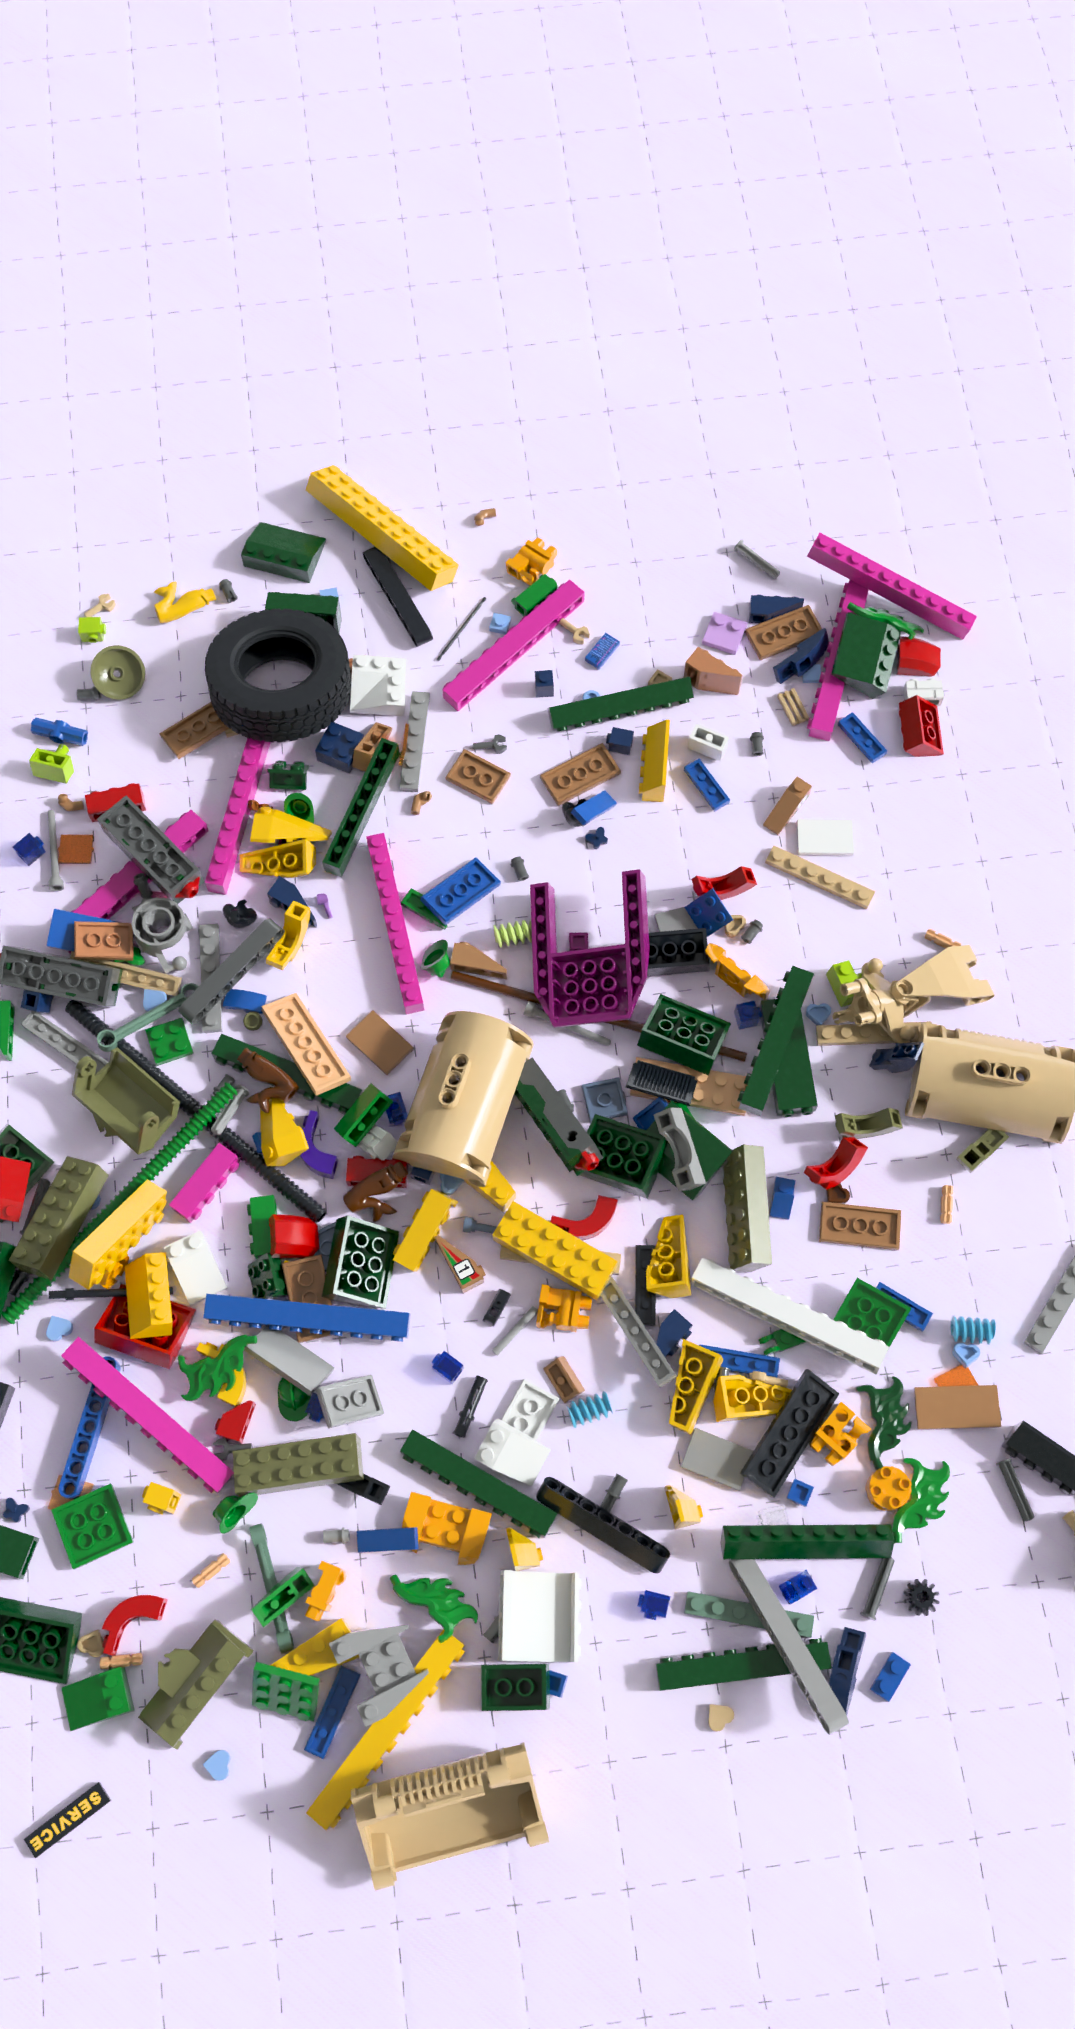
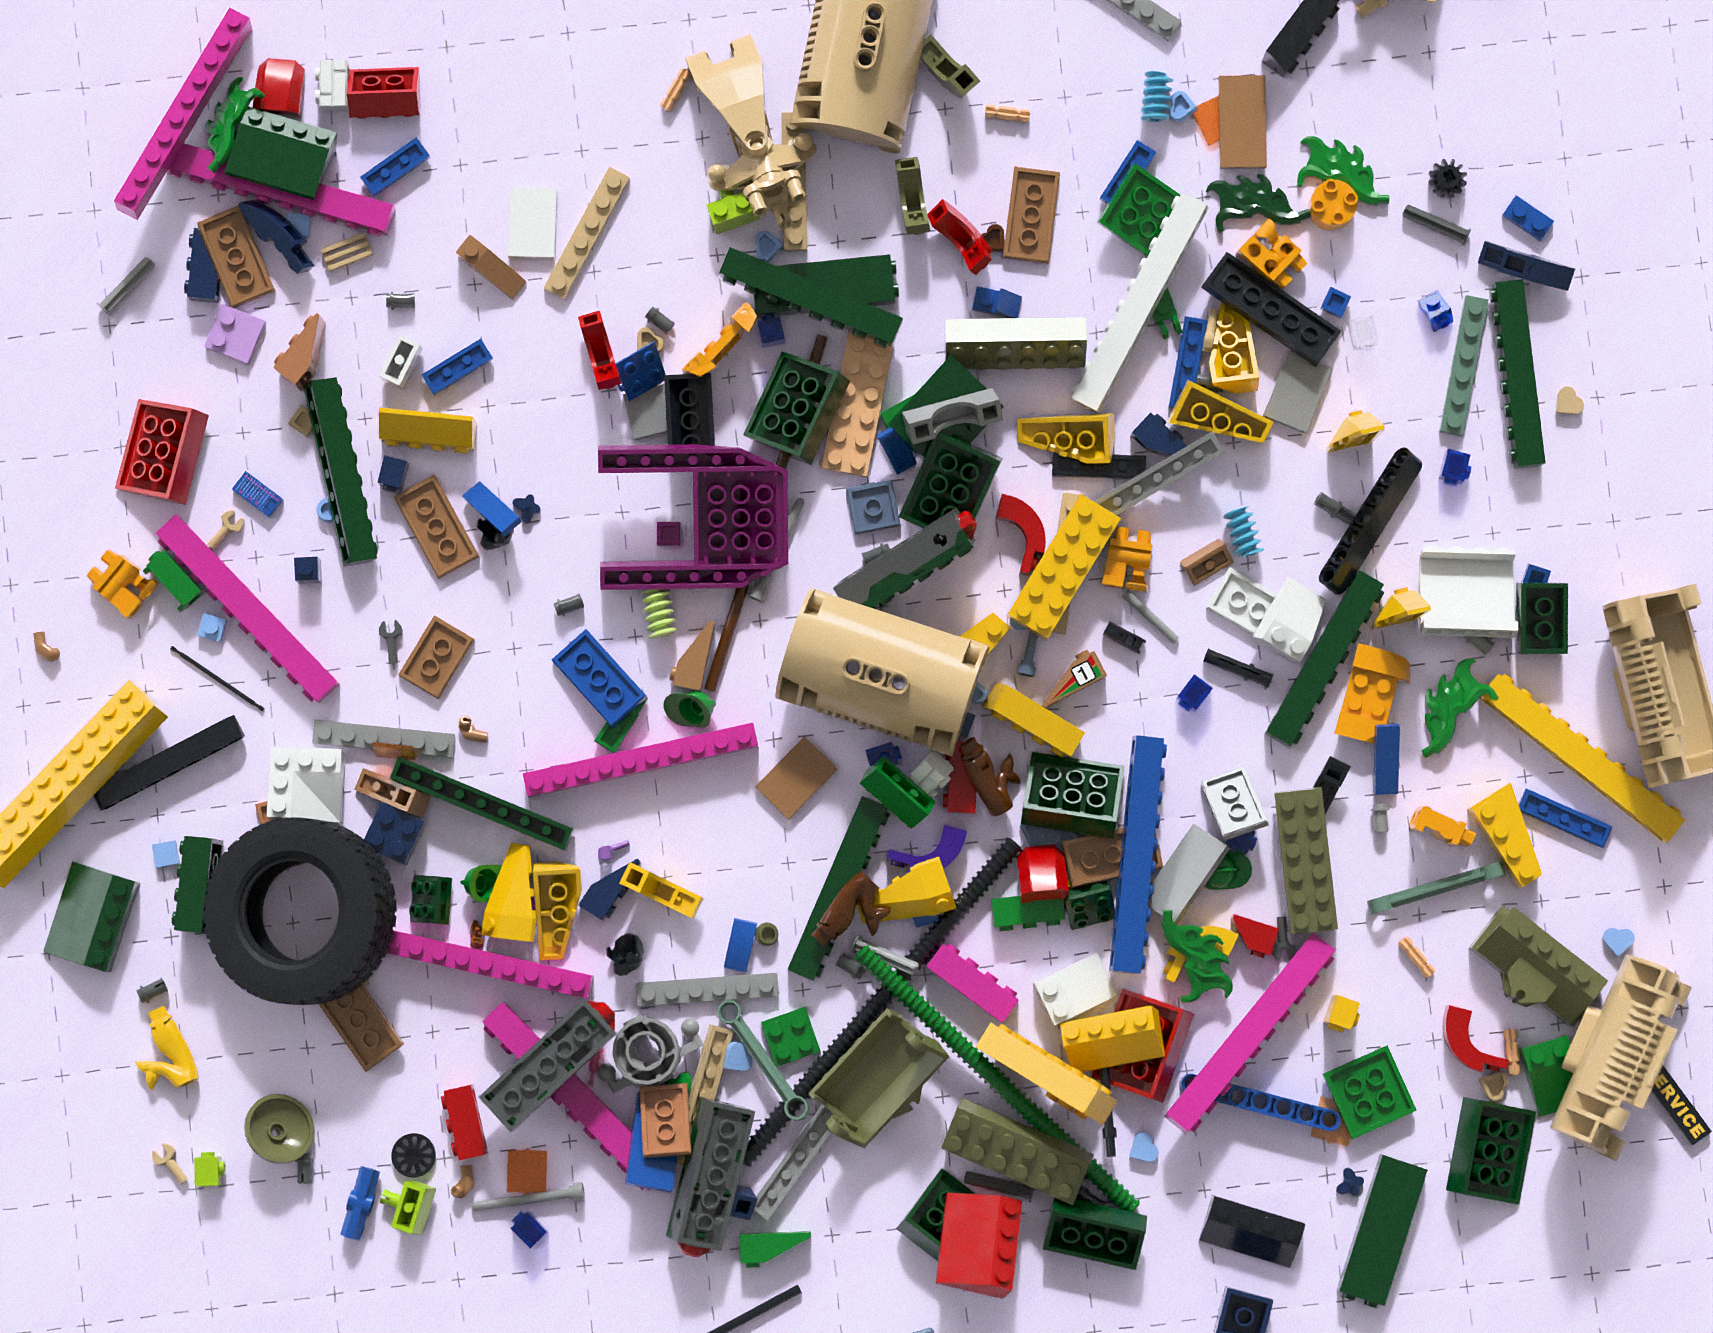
camera: 90 degrees left, 15 degrees up
(93, 769) = (413, 1155): none -> black wheel
(103, 1756) = (1618, 1054): none -> tan cylinder
(143, 885) = (584, 1078): dark grey pin -> none
(231, 971) = (706, 959): dark grey beam -> none
(232, 1510) = (1352, 936): green piece -> none
(282, 1596) = (1447, 871): green slope -> none
(285, 1691) = (1549, 865): green plate -> none
(306, 1044) = (802, 865): light nougat plate -> none
(385, 1665) = (1522, 756): light grey wedge -> none
(632, 586) = (162, 451): none -> red slope
(662, 1082) = (859, 436): black window -> none
(789, 1645) = (1497, 324): light grey beam -> none
(807, 1541) = (1391, 297): dark green brick -> none
(897, 1059) = (836, 156): dark blue slope -> none
(1016, 1489) = (1331, 66): dark grey axle -> none

